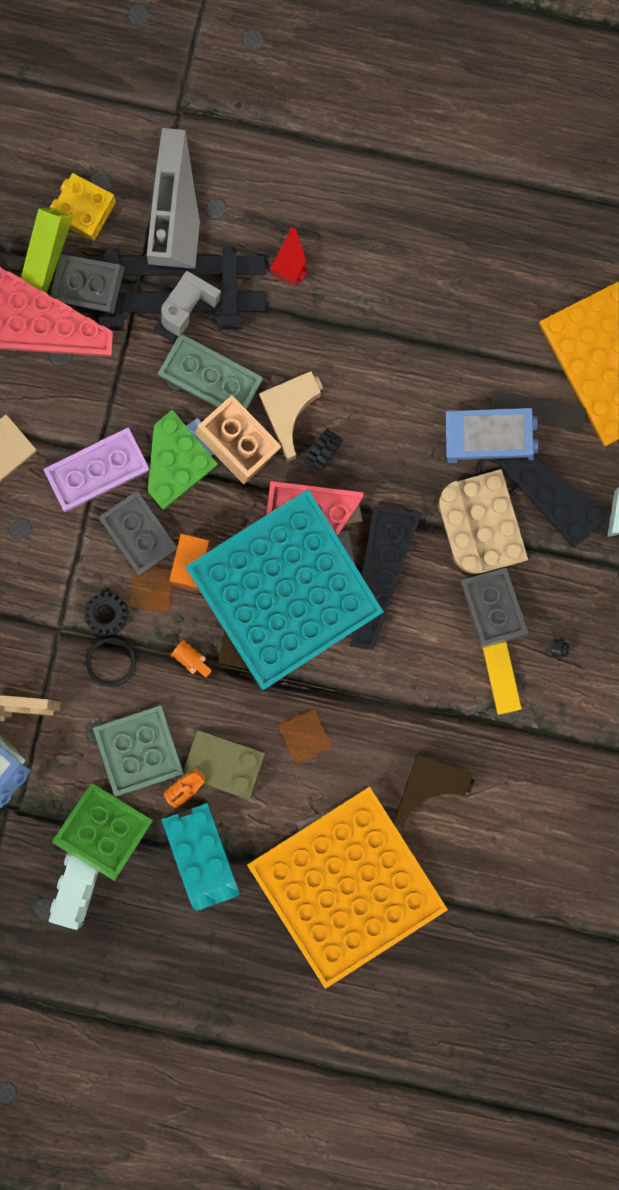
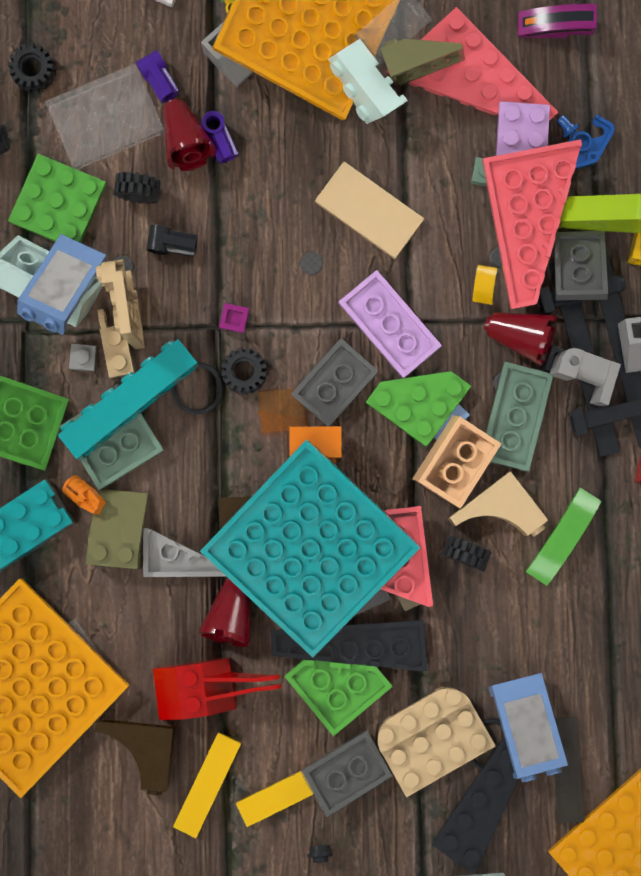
camera: 85 degrees right, 0 degrees up
(52, 727) = (115, 348): none -> tan hinge
(54, 611) = (234, 318): none -> magenta plate
(55, 761) = (83, 357): none -> light grey plate
(81, 375) = (484, 284): none -> yellow sticker
(106, 724) = (128, 399): none -> teal brick
(135, 351) = (523, 333): none -> dark red cone
(191, 658) = (218, 469): orange hinge -> none
(263, 722) = (170, 559): none -> light grey wing
(304, 736) = (167, 605): clear orange piece -> none
(328, 680) = (228, 617): none -> dark red cone
(330, 361) = (564, 537): none -> bright green slope
(387, 720) = (202, 688): none -> red slope
(418, 598) = (337, 689): none -> bright green plate
(475, 737) = (207, 785): none -> yellow tile

